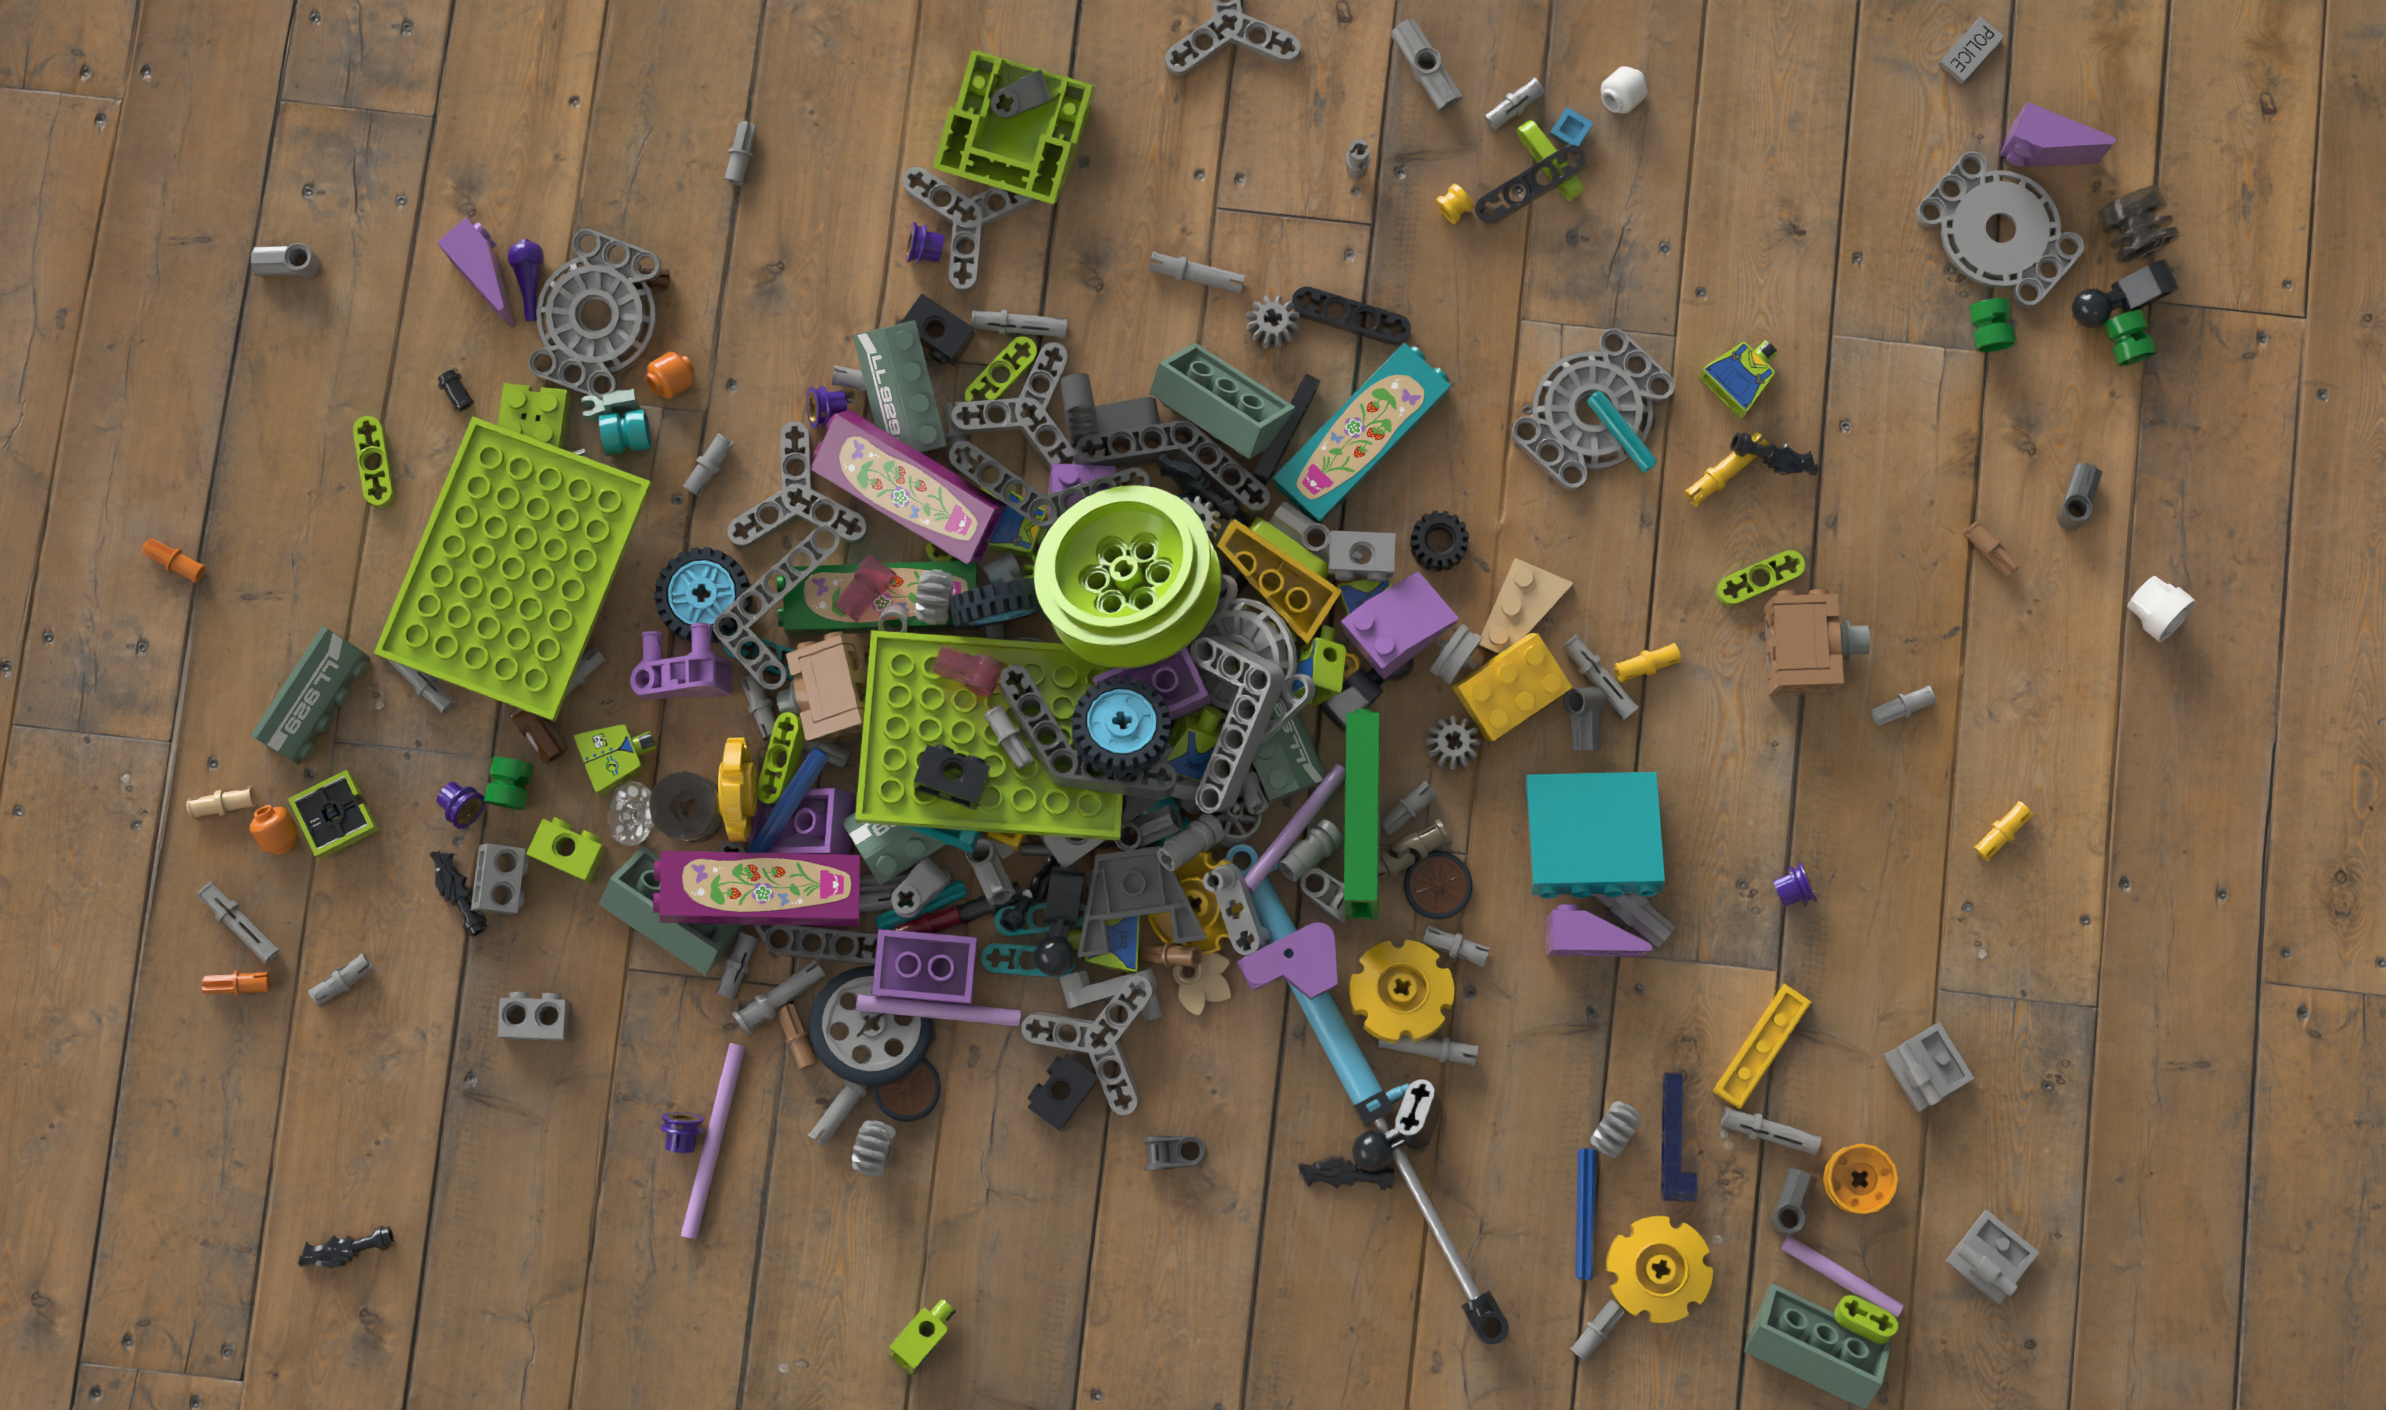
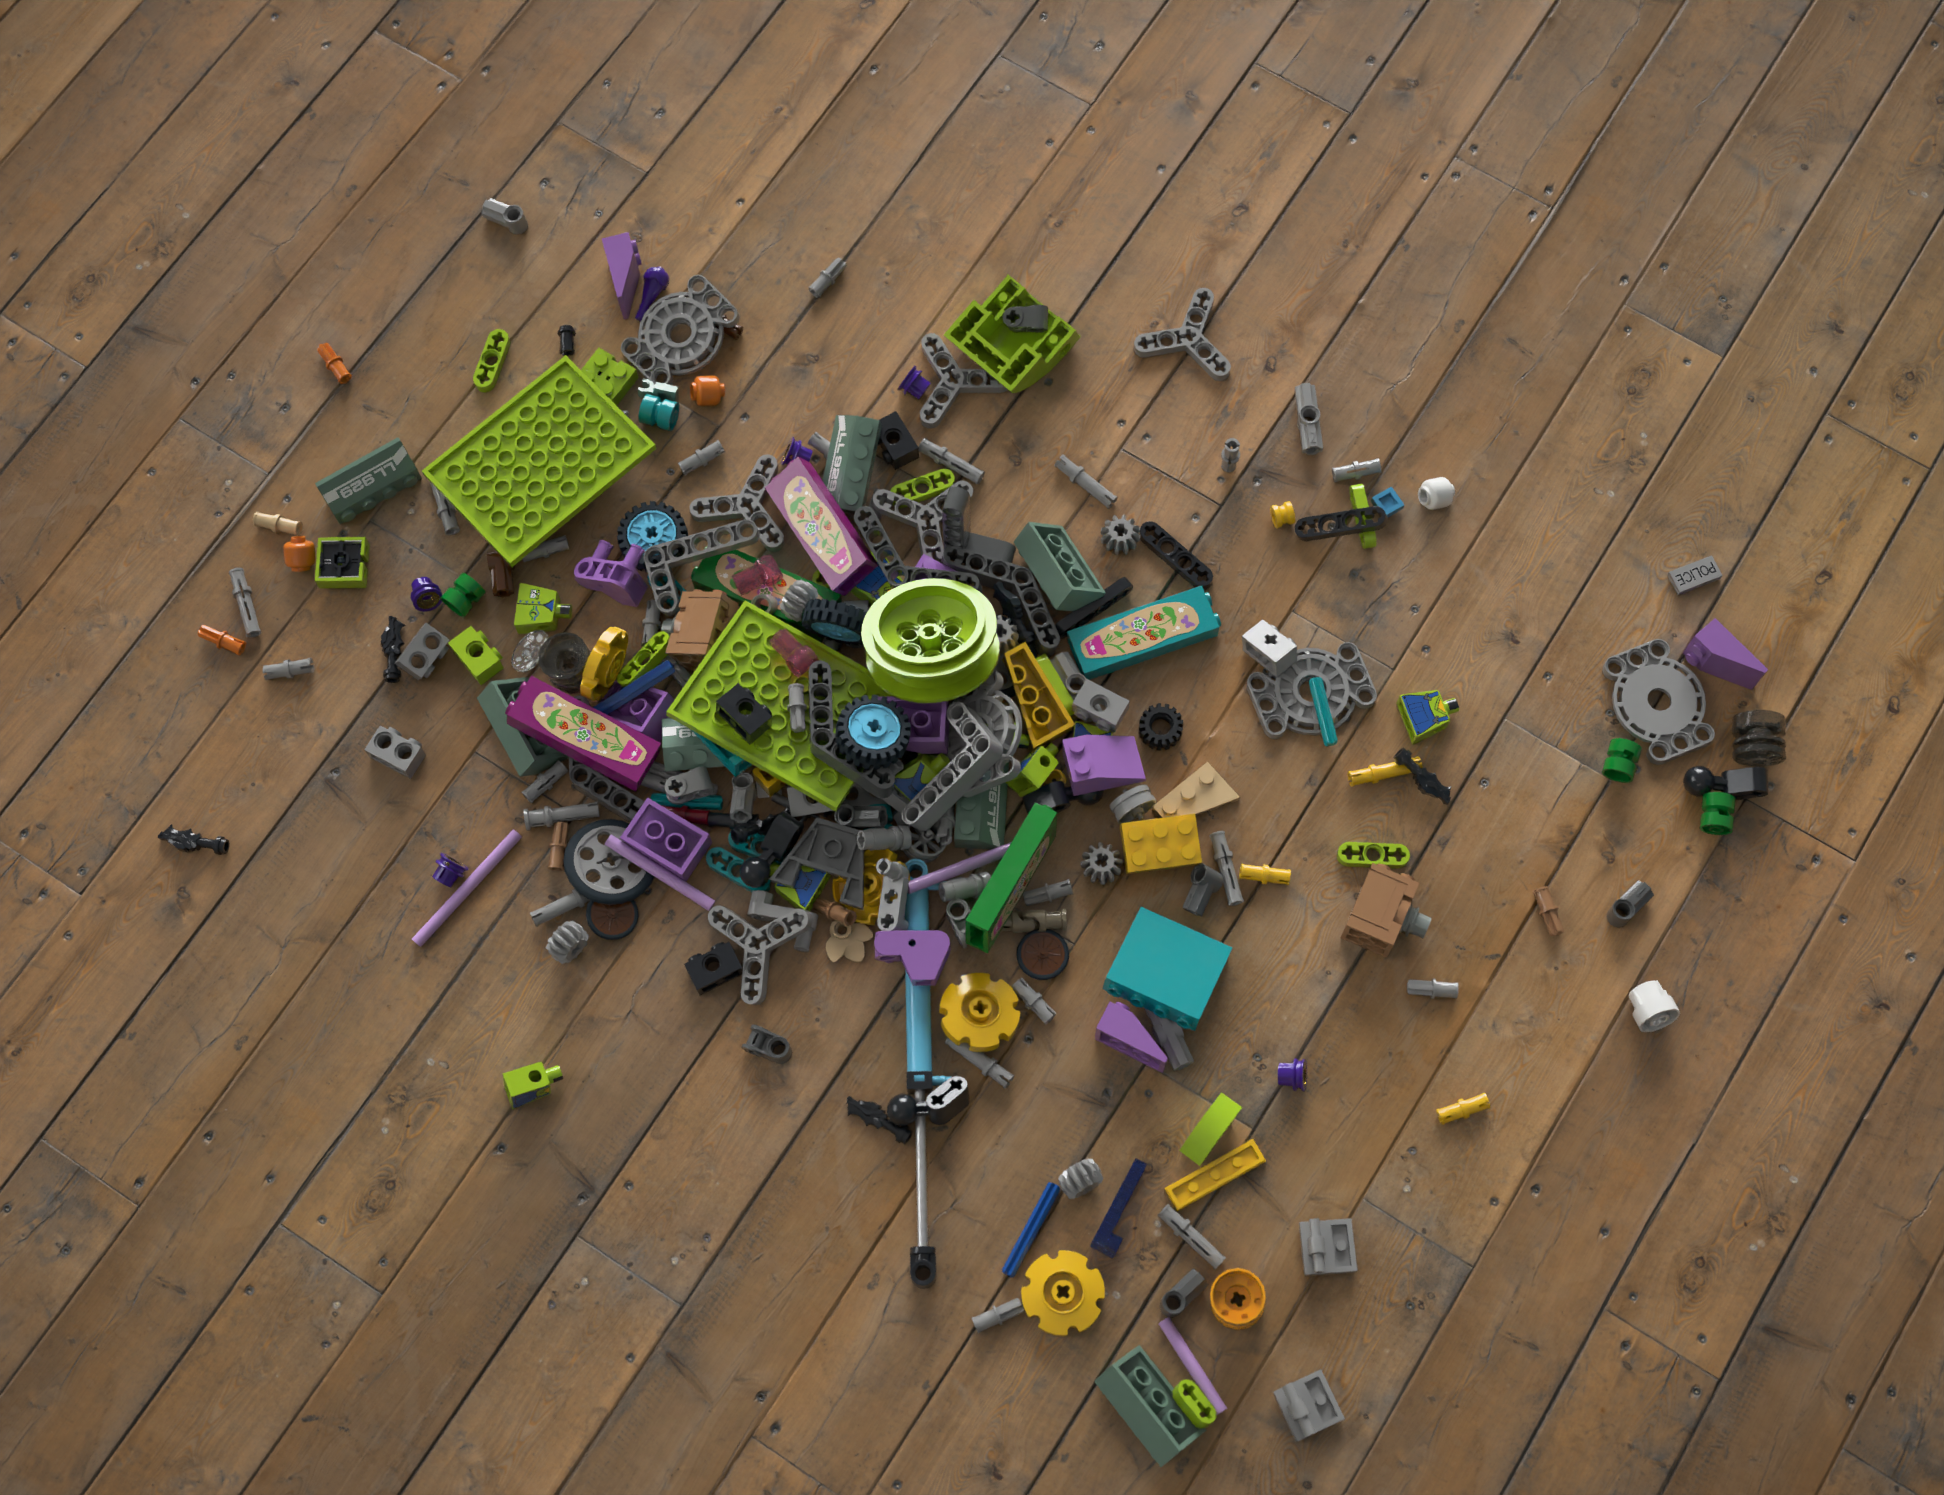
camera: 30 degrees right, 10 degrees down
(1522, 381) = (1269, 647): none -> brick
(1734, 997) = (1210, 1129): none -> lime brick

